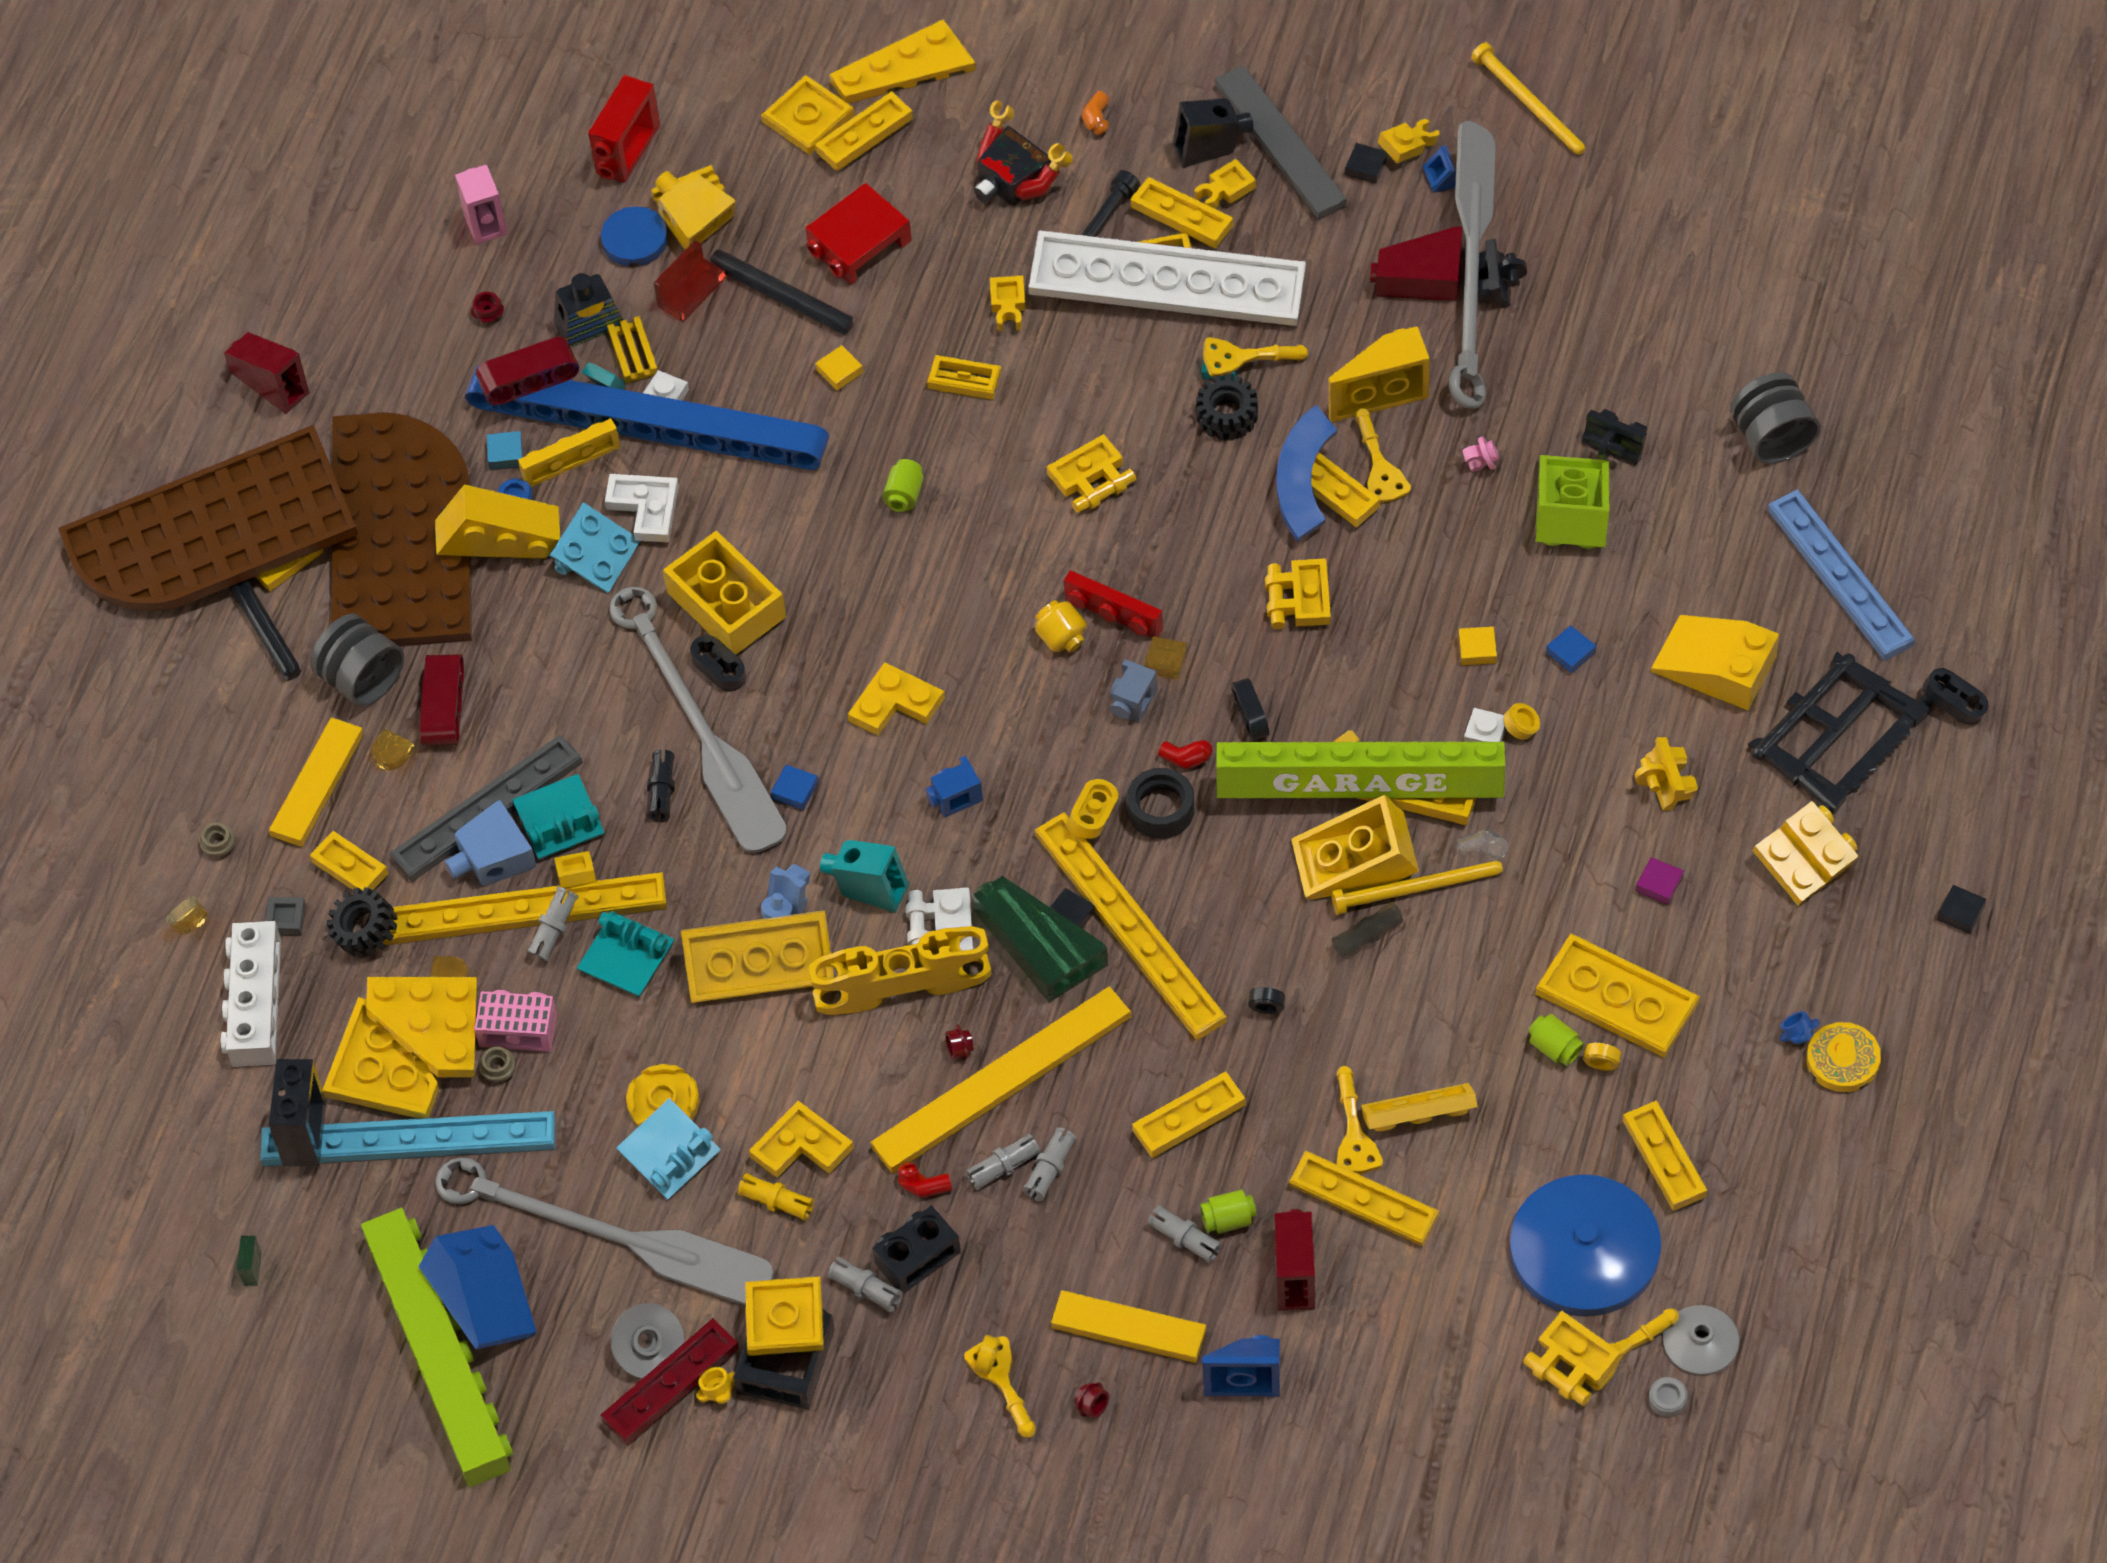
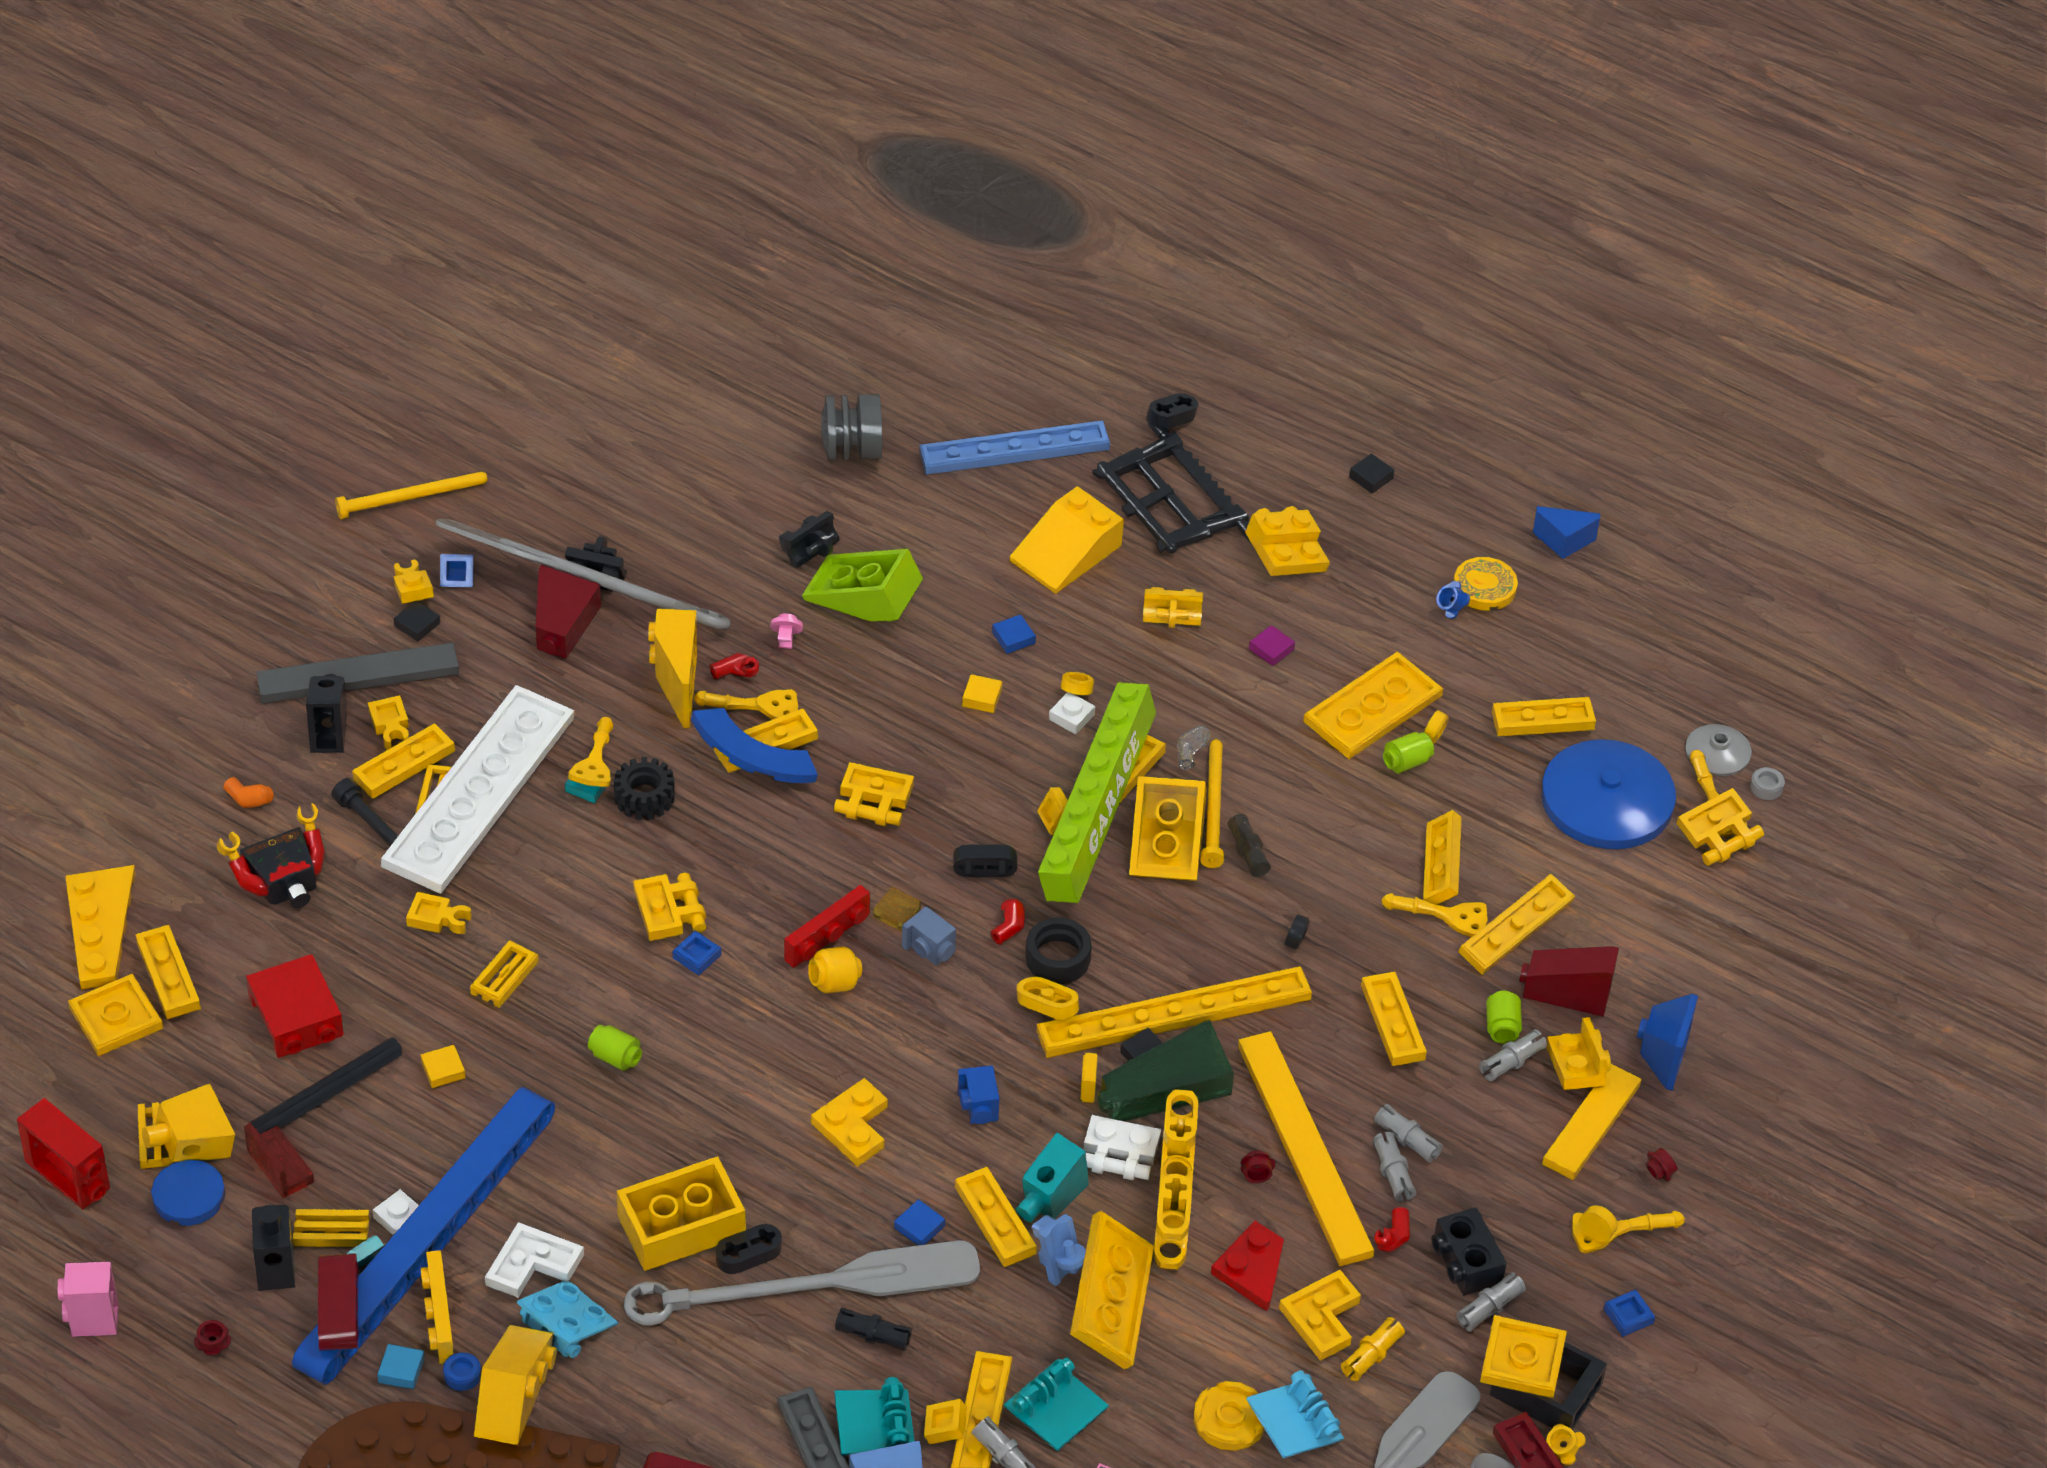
camera: 80 degrees left, 10 degrees down
(825, 835) = (995, 1216): none -> yellow plate
(844, 1071) = (1251, 1264): none -> red wing
(899, 1413) = (1629, 1313): none -> blue tile
(1013, 868) = (1088, 1079): none -> yellow tile
(1048, 515) = (696, 952): none -> blue tile
(1196, 1291) = (1579, 1057): none -> yellow bracket
(1422, 429) = (735, 664): none -> red arm
(1953, 1114) = (1565, 529): none -> blue slope

